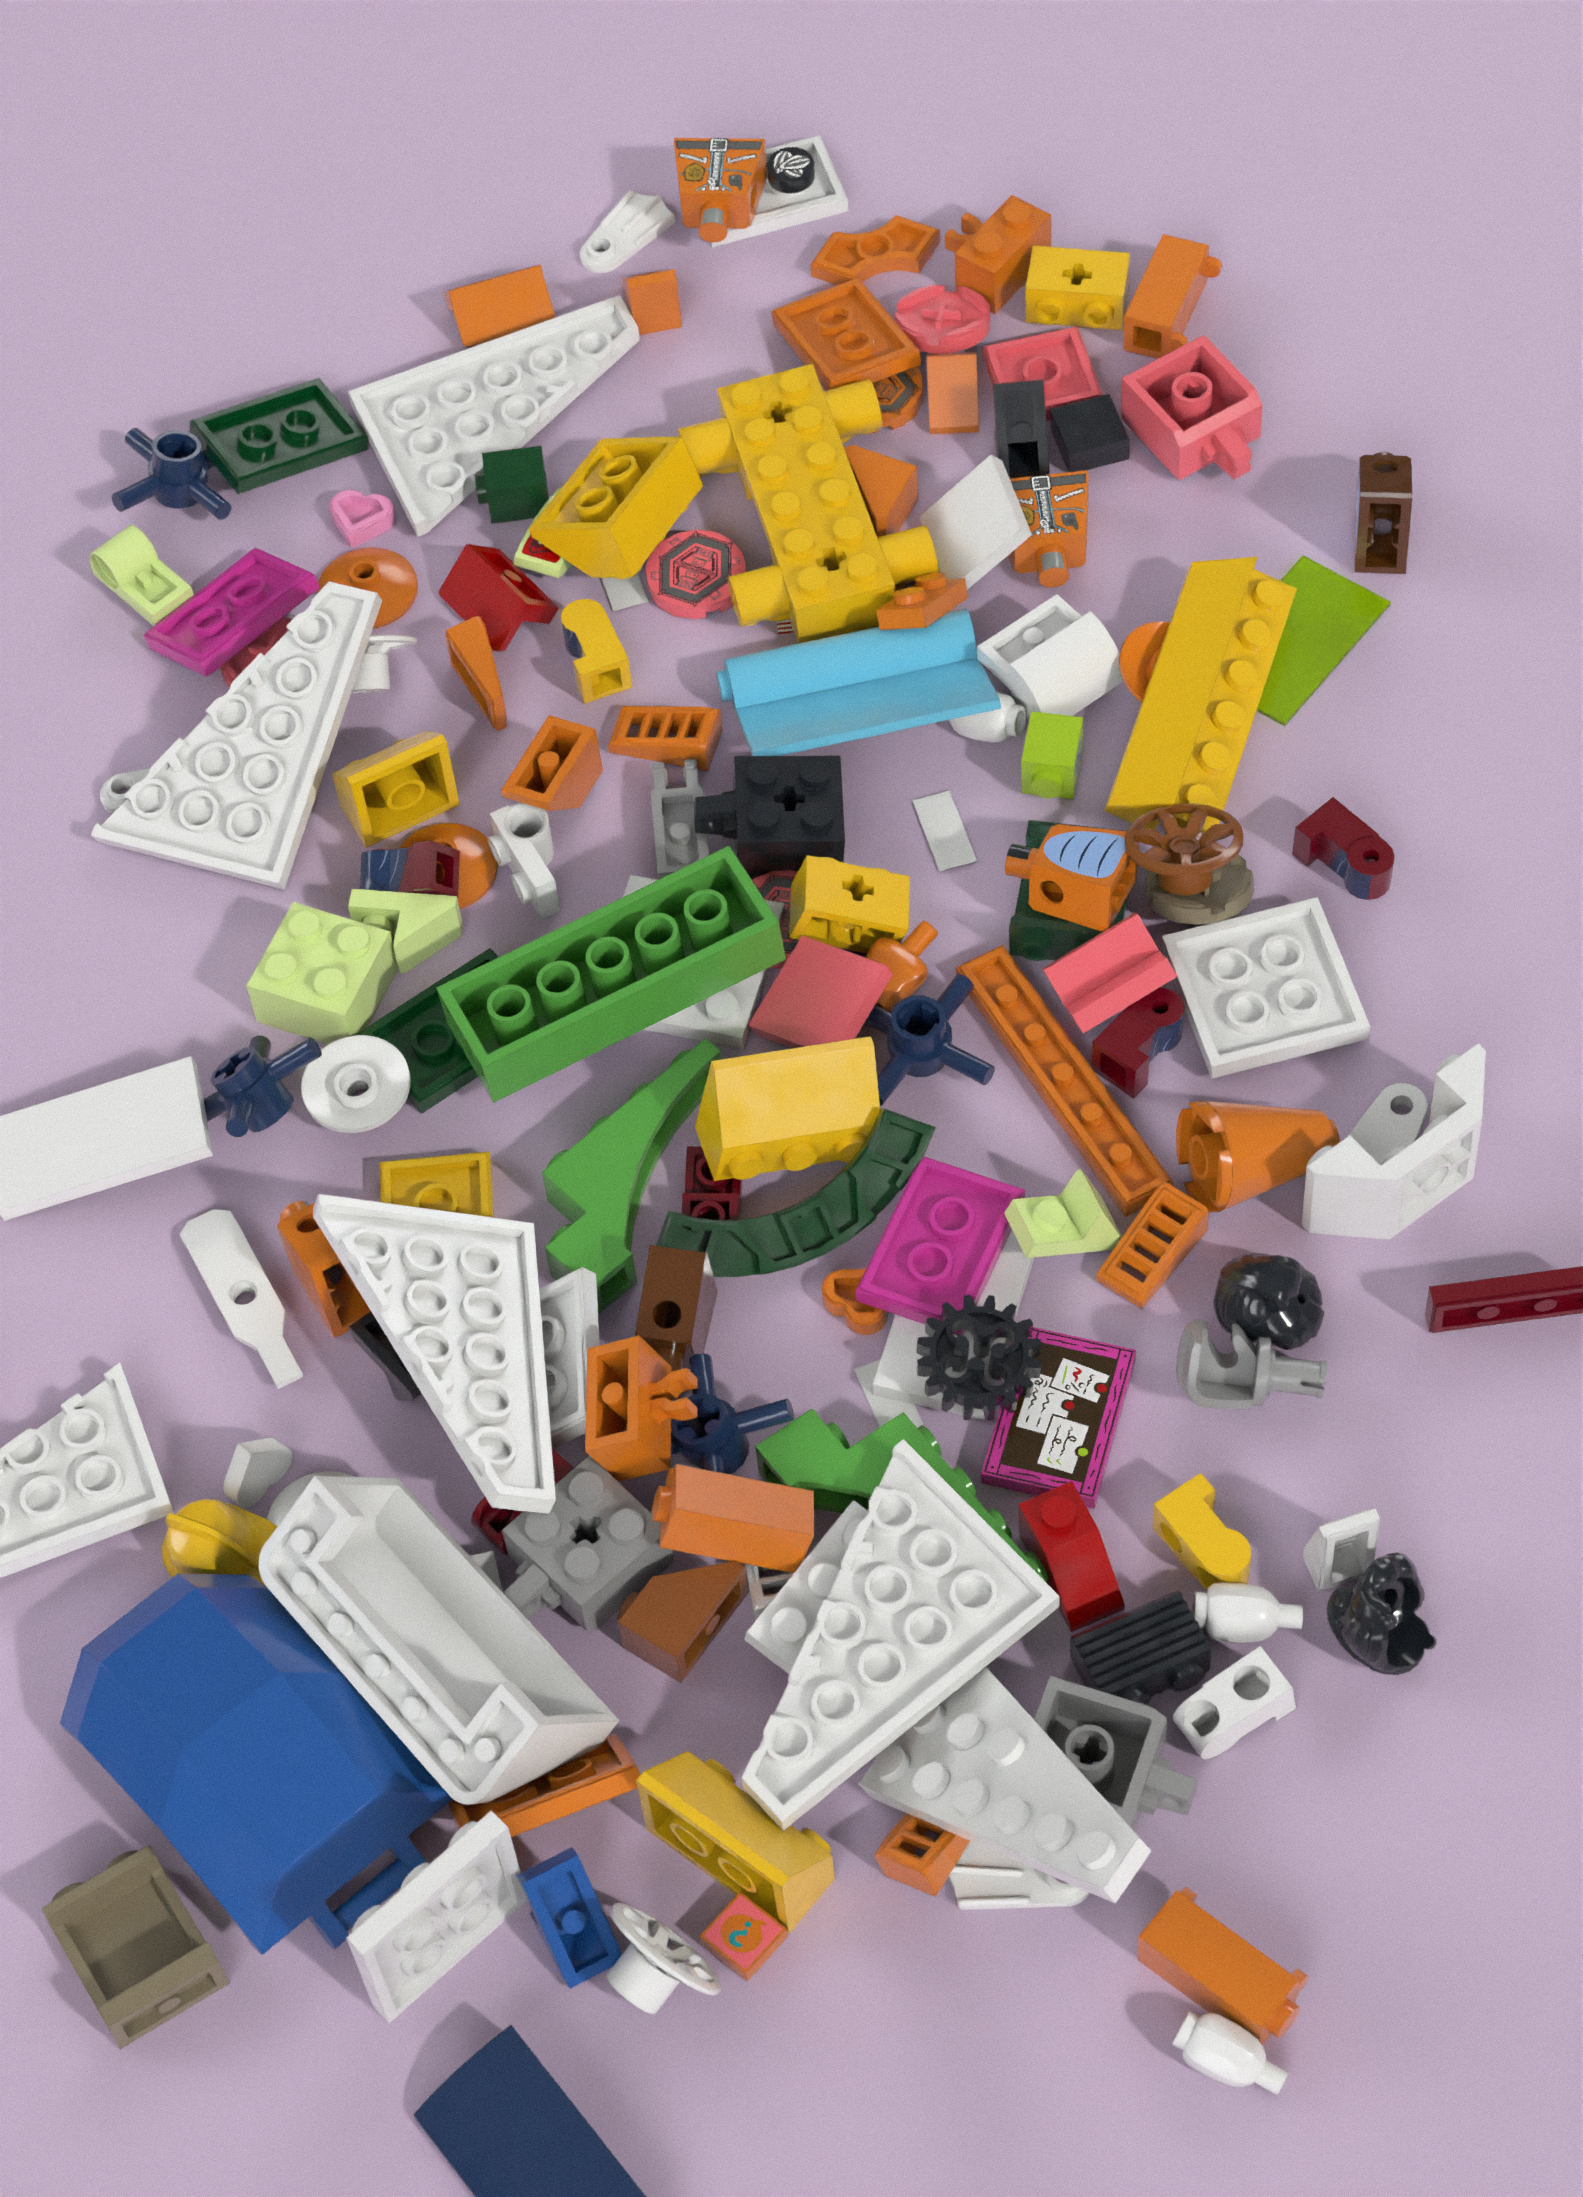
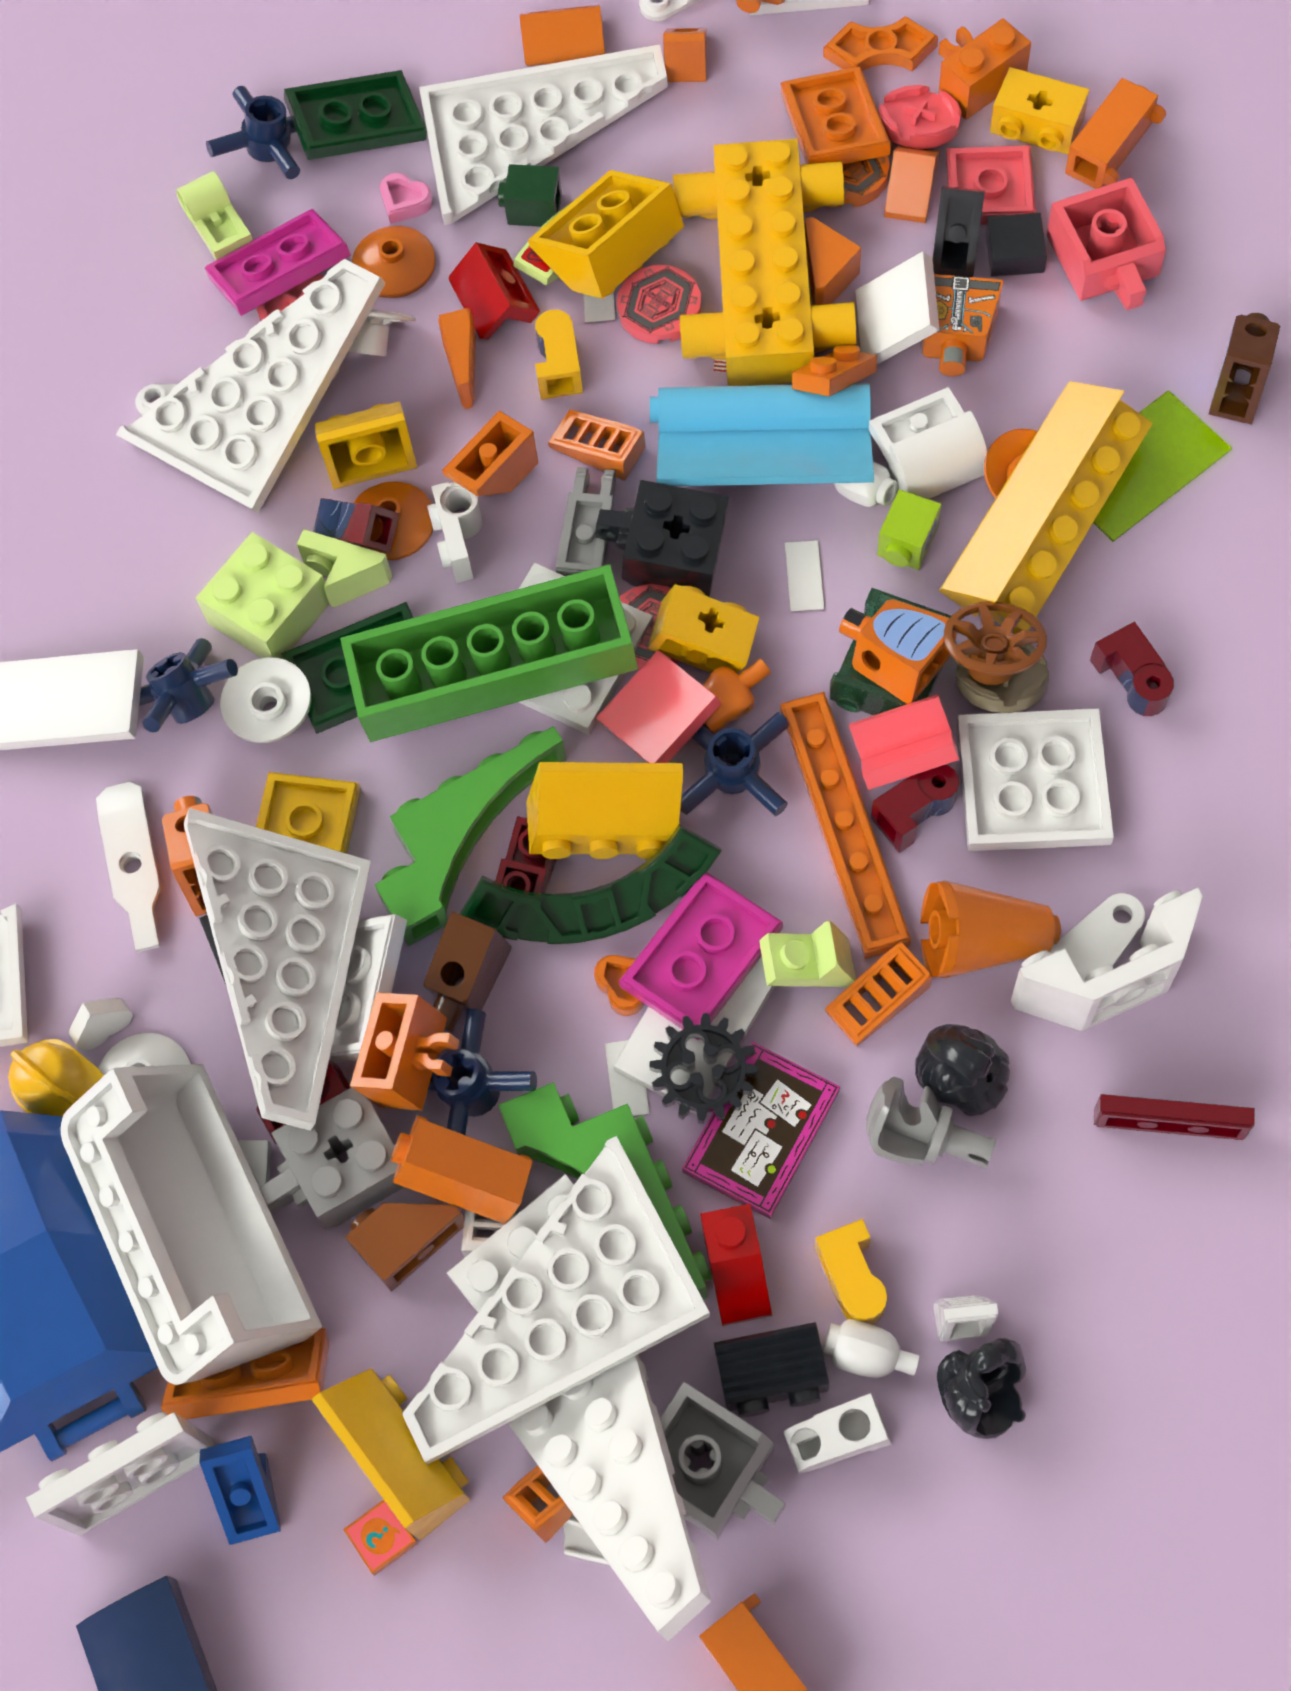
camera: 15 degrees right, 10 degrees up
(650, 1969) = (294, 1550): white wheel -> none

